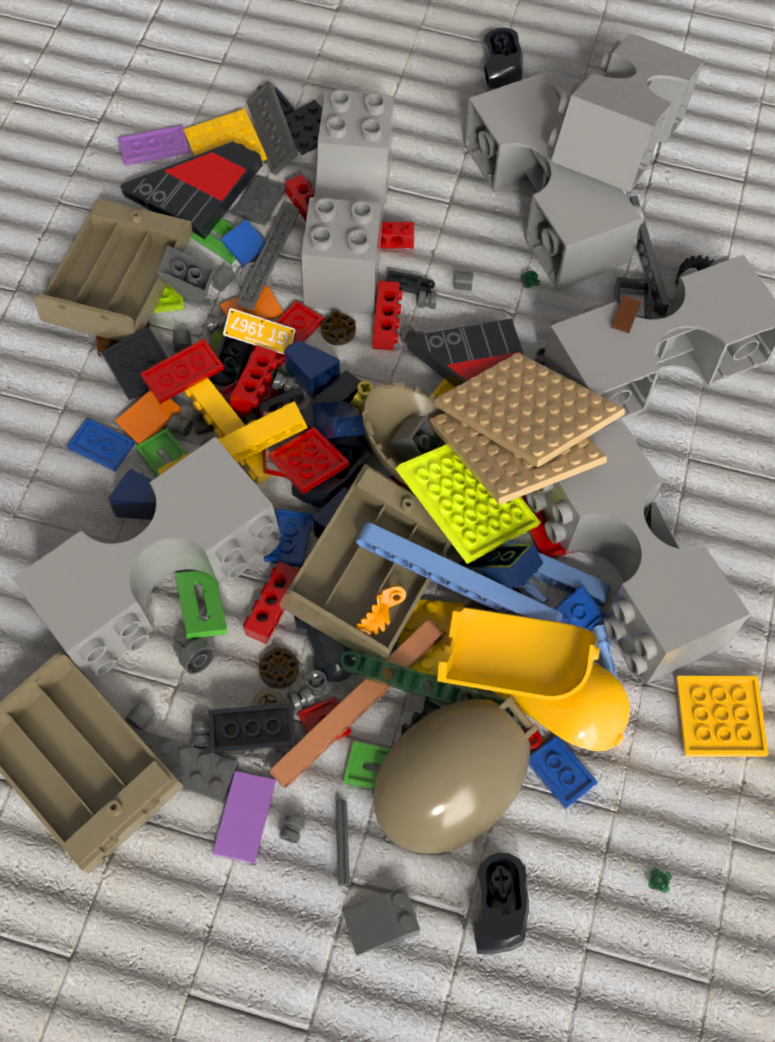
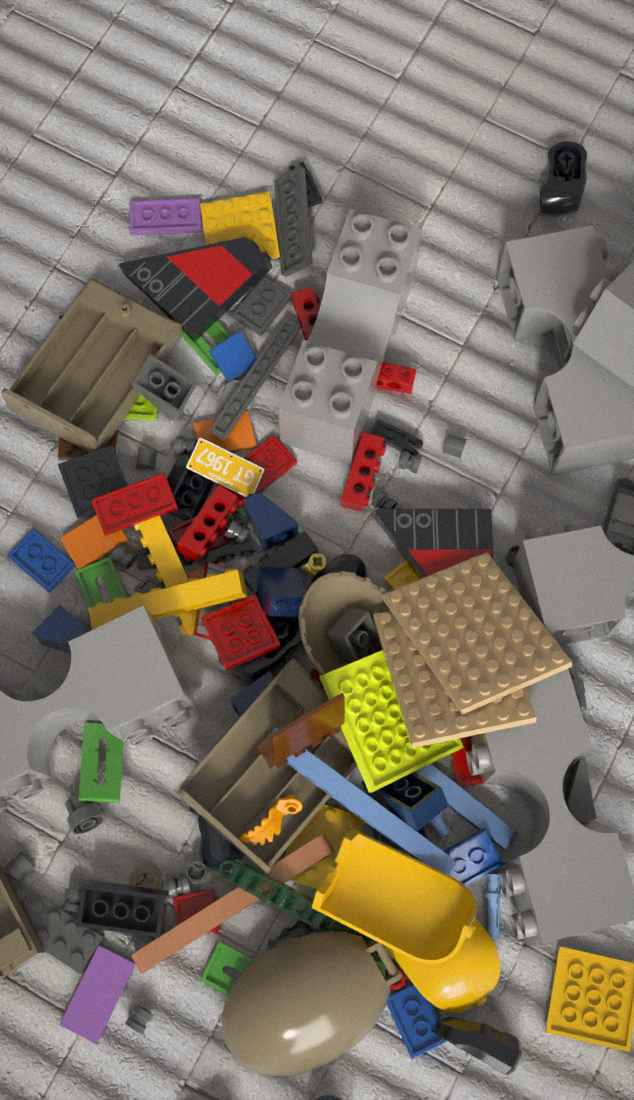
camera: 15 degrees right, 10 degrees up
(222, 279) = (202, 395): dark grey brick -> none
(264, 629) = (147, 794): red brick -> none
(278, 668) = (164, 845): dark brown tile -> none
(294, 537) = (211, 699): blue tile -> none
(305, 126) = (327, 222): black plate -> none
(338, 328) = (309, 476): dark brown tile -> none
(342, 843) = (185, 1043): dark grey axle -> none
(393, 512) = (304, 732): none -> reddish brown slope
(527, 277) = (529, 453): clear green plate -> none
(626, 314) = (606, 545): reddish brown tile -> none
(630, 772) = (481, 1041): none -> black piece

